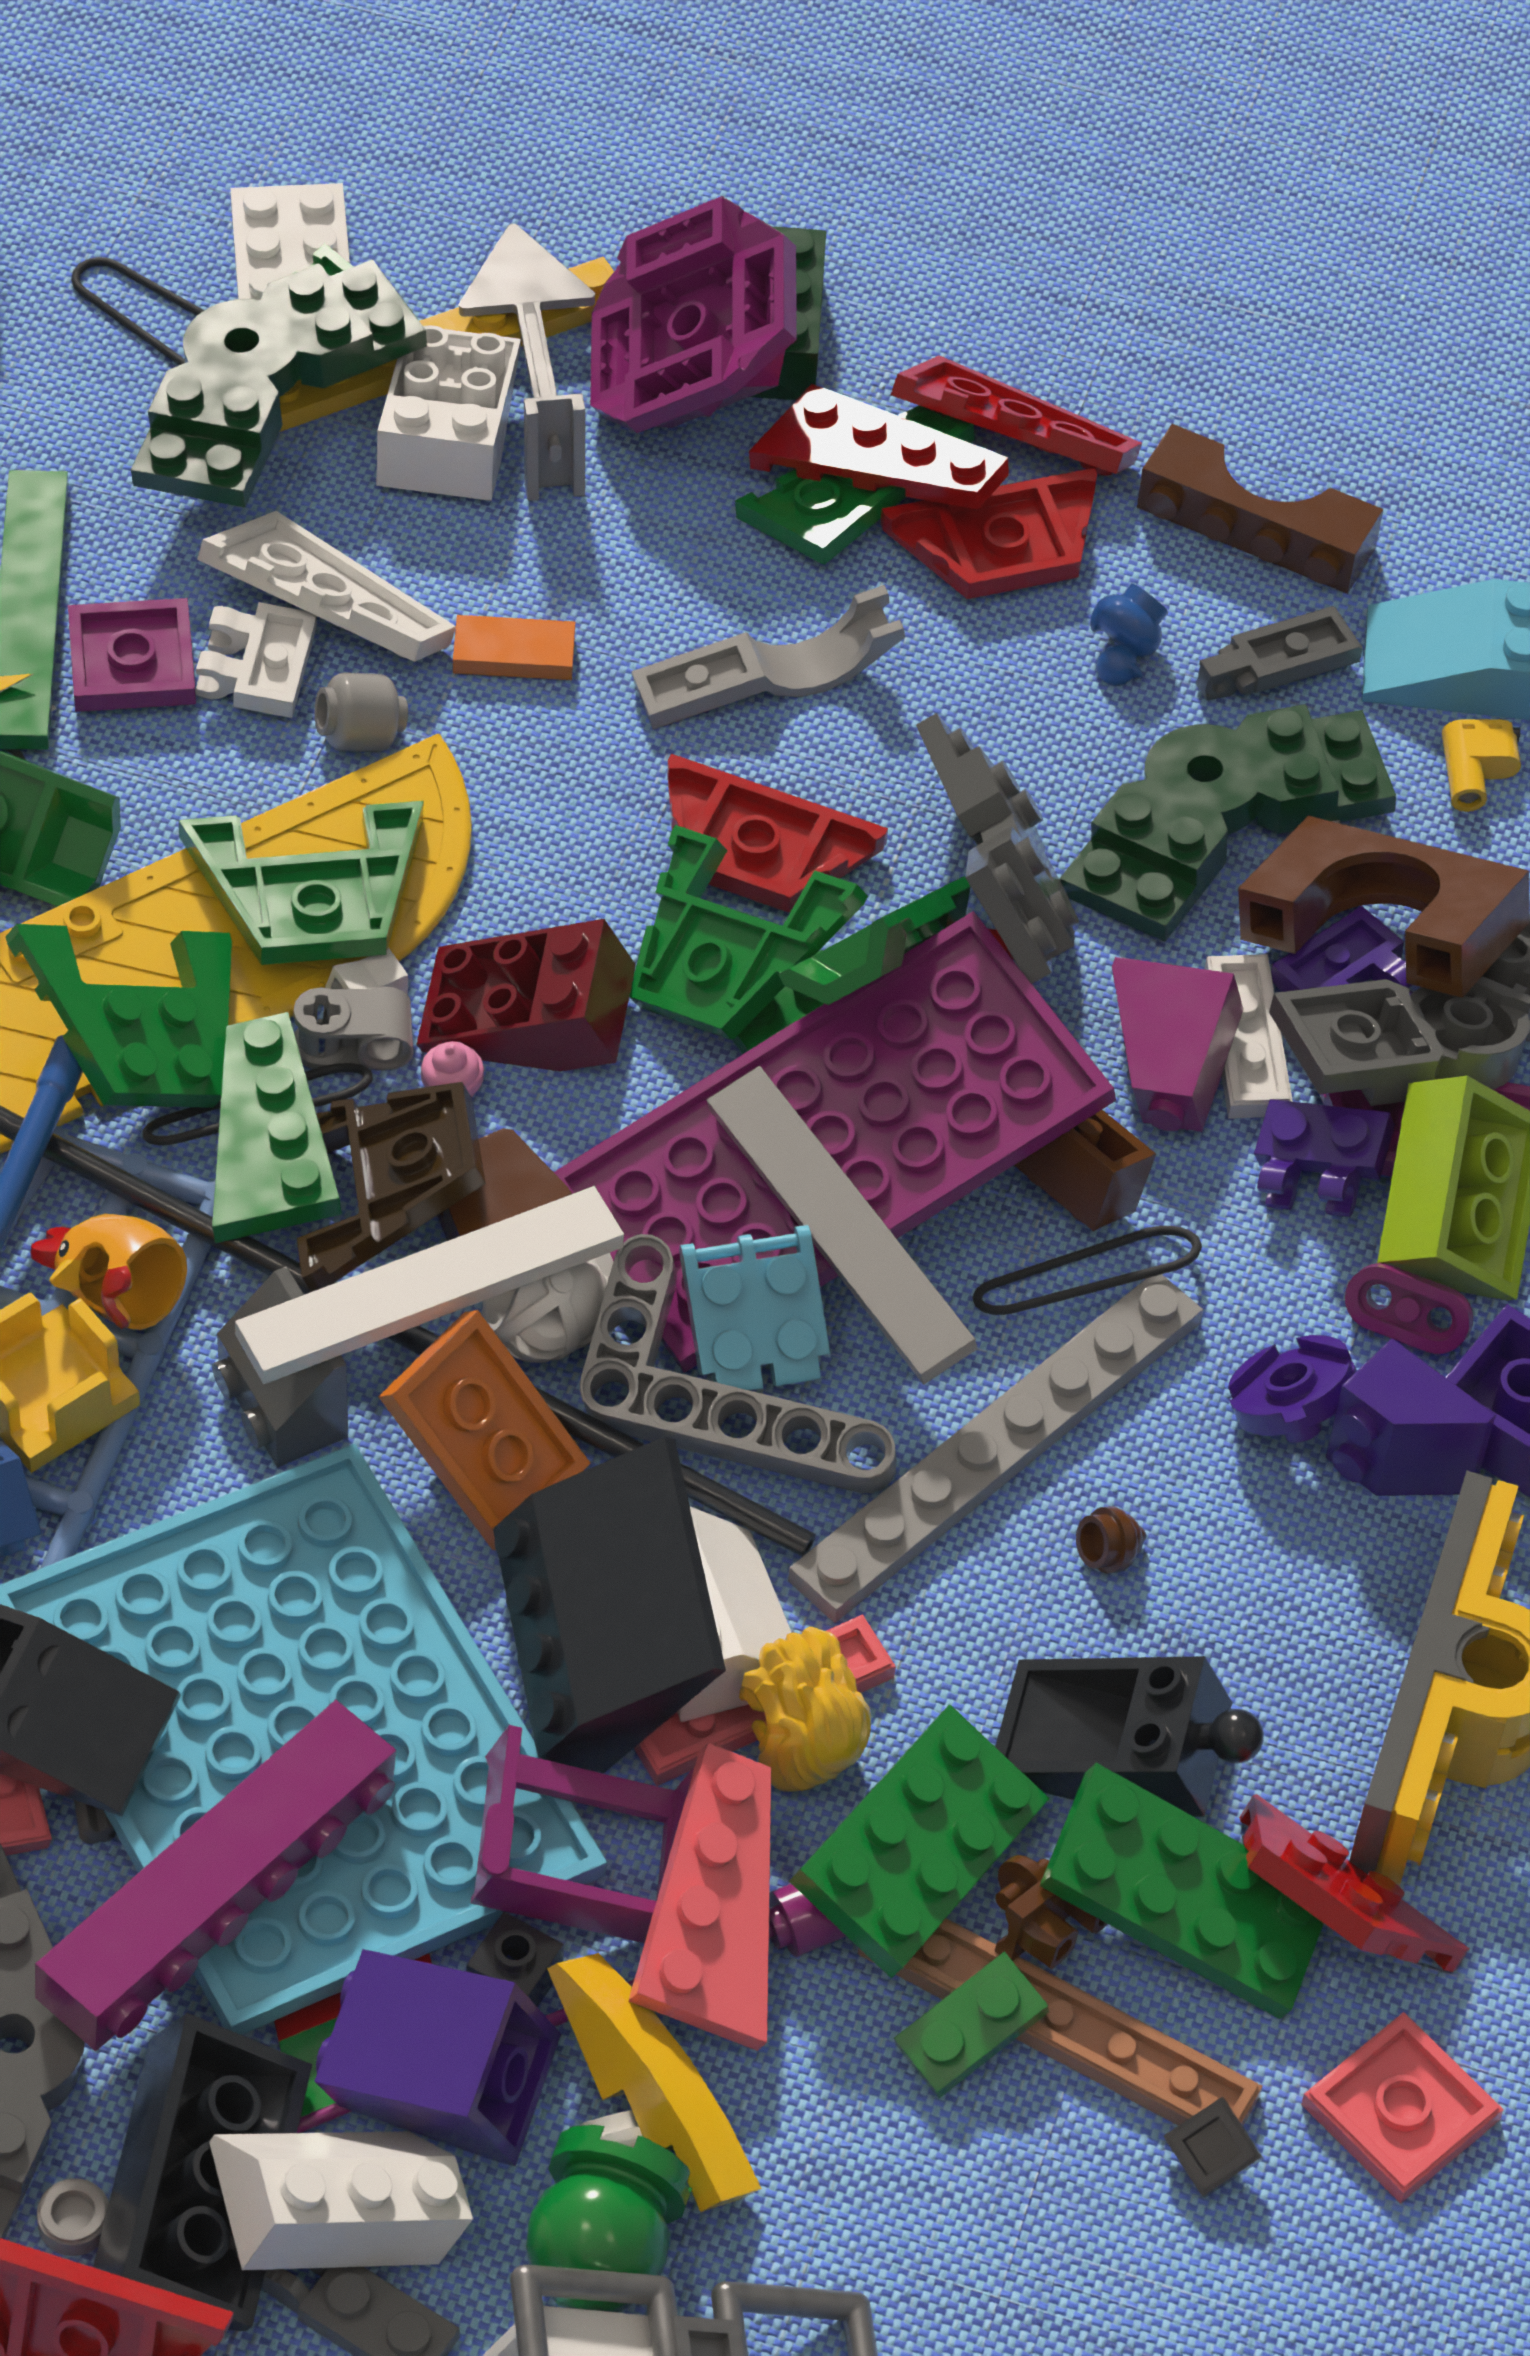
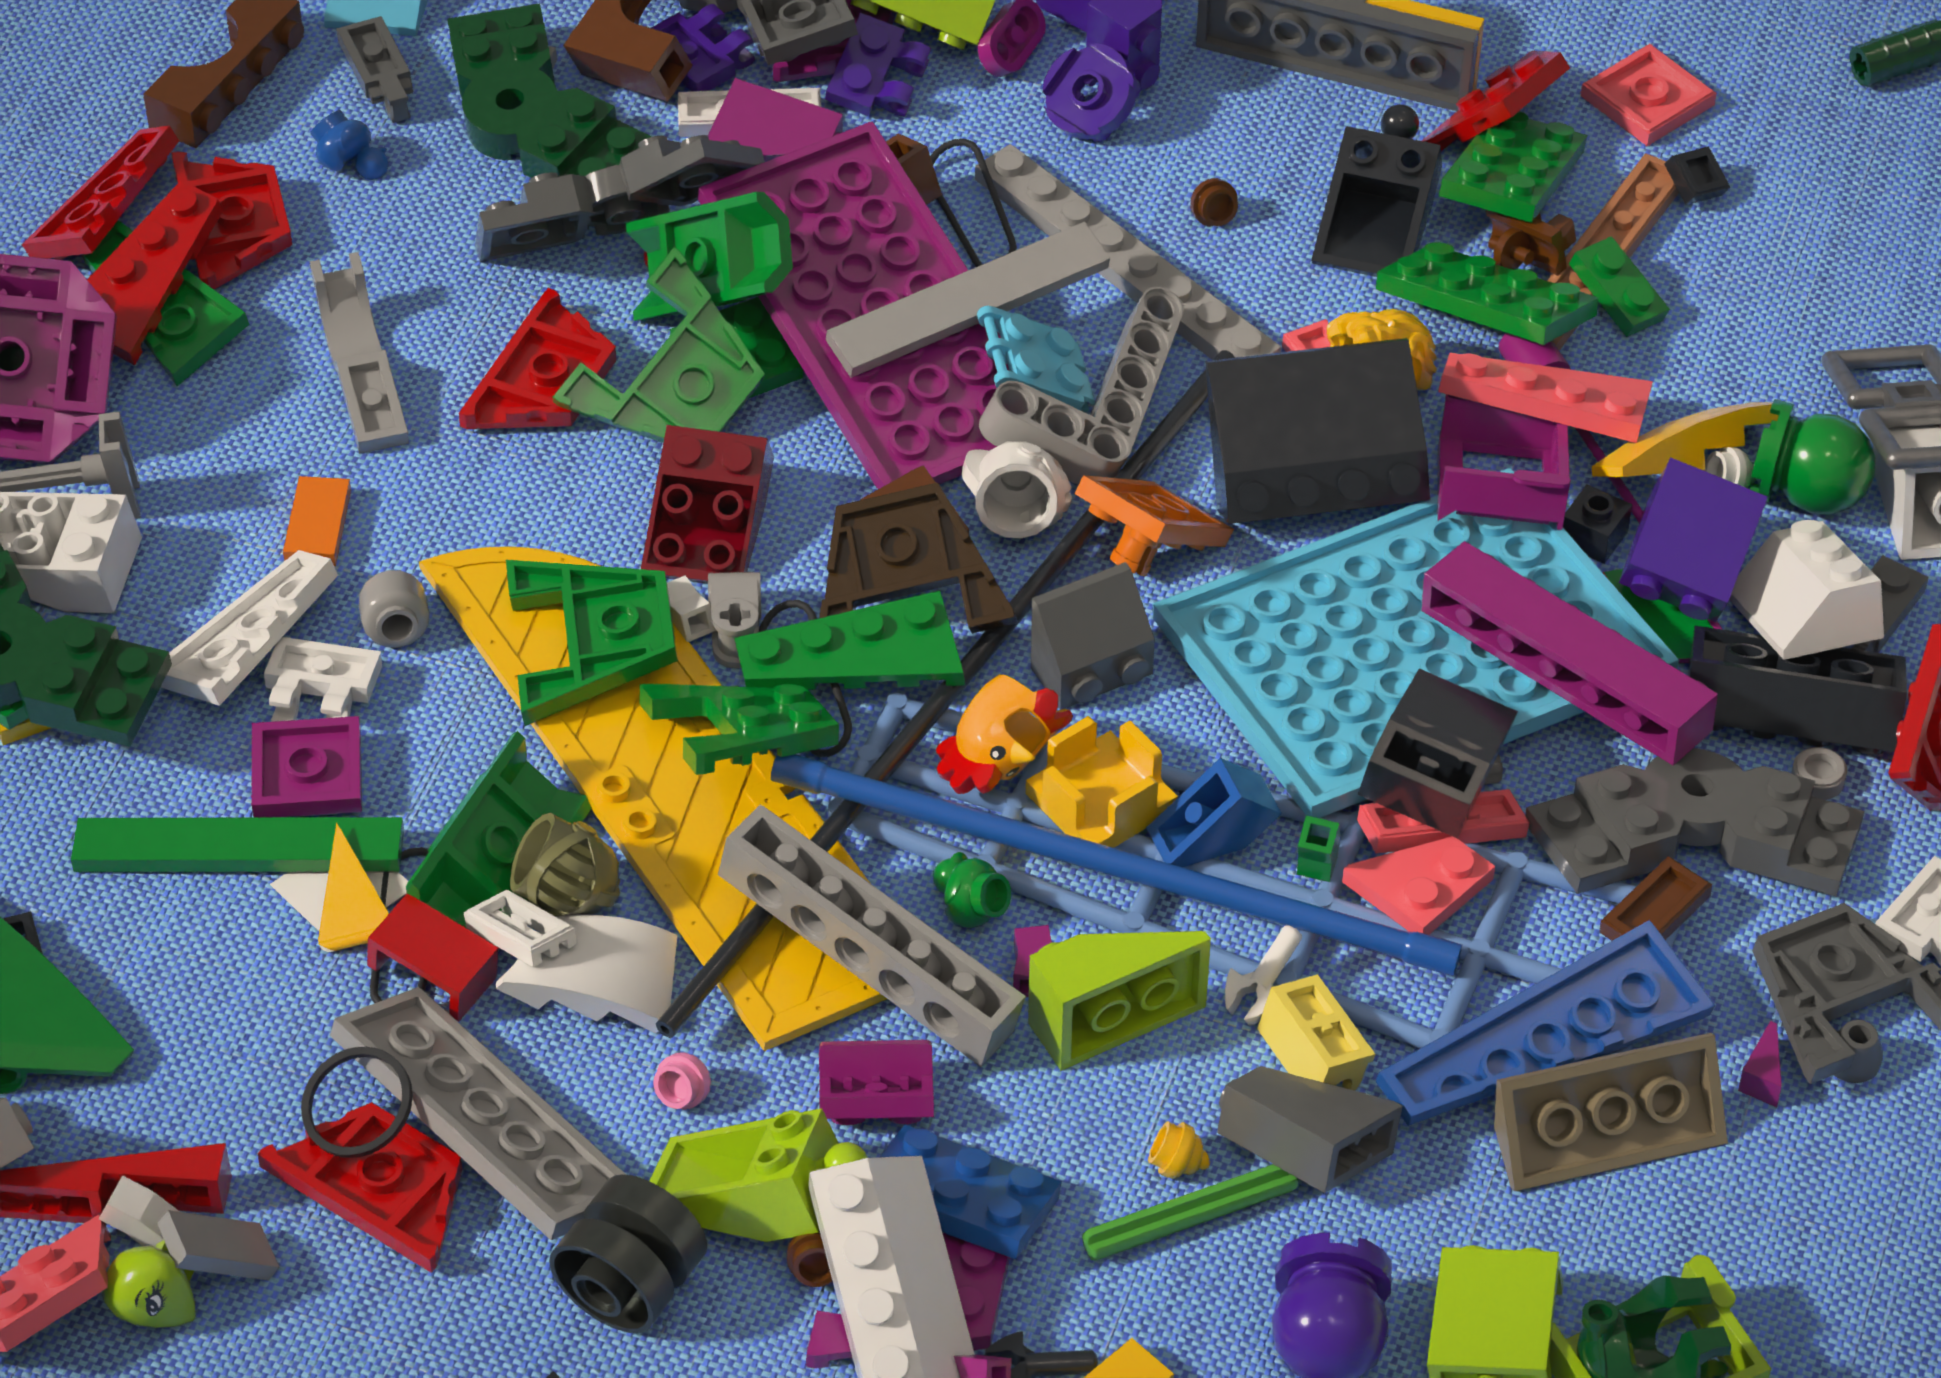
camera: 85 degrees left, 5 degrees down
(428, 1284) = (1056, 509): white tile -> none
(452, 1064) = (776, 558): bright pink plate -> none

